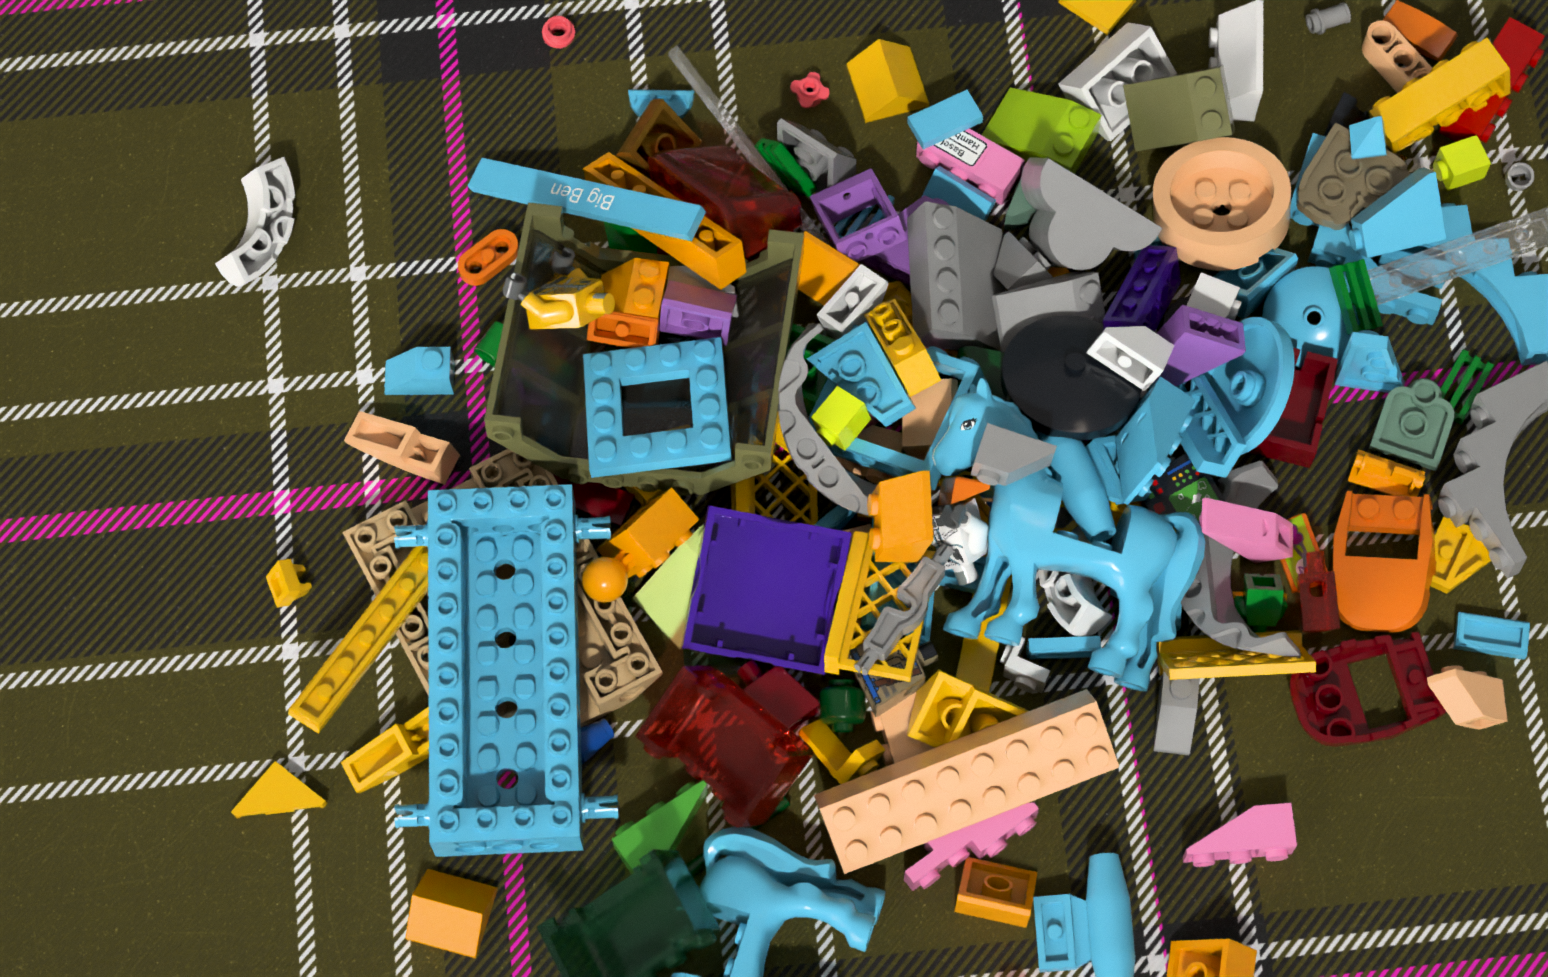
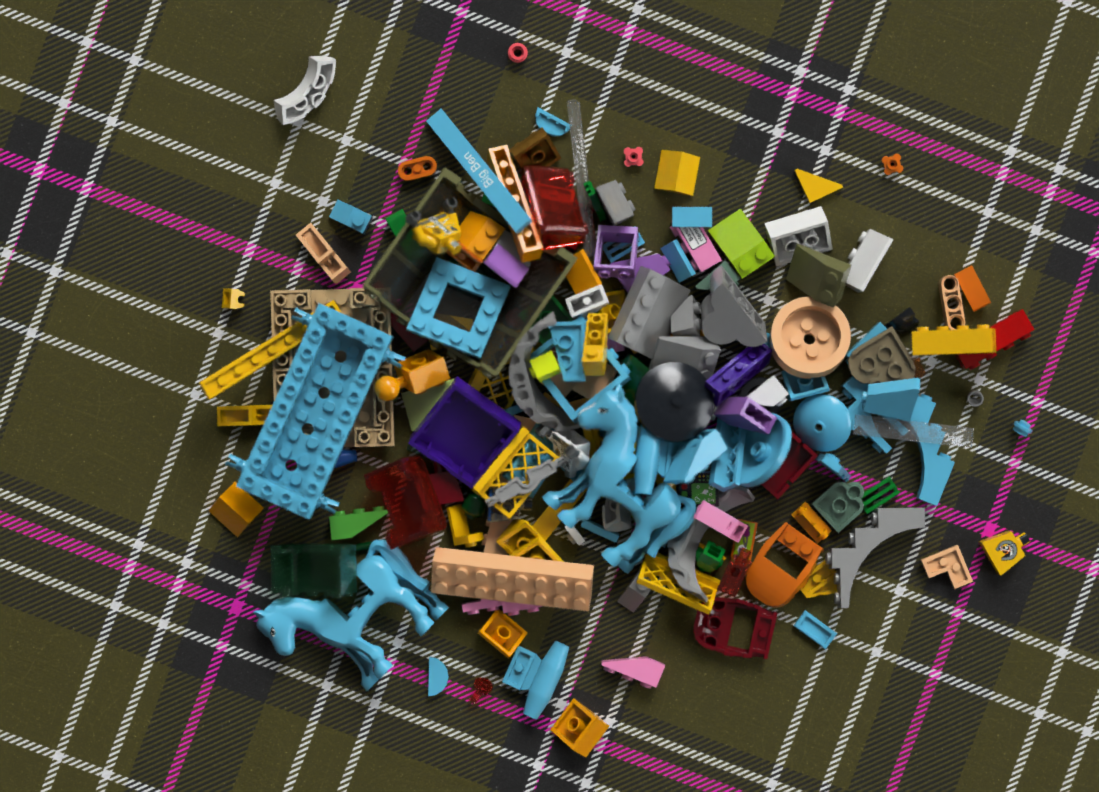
camera: 25 degrees right, 20 degrees up
(277, 793) = (179, 406): yellow tile -> none
(901, 518) = (546, 437): light orange slope -> none
(958, 489) = (585, 438): orange slope -> none
(1009, 456) = (611, 439): light grey slope -> none
(1132, 353) = (710, 410): white slope -> none
(1327, 18) = (930, 255): light grey pin -> none
(1360, 296) = (852, 430): green tile -> none
(1368, 138) = (901, 347): medium azure slope -> none
(1461, 163) = (949, 375): neon yellow brick -> none
(1470, 697) = (783, 659): light nougat slope -> none

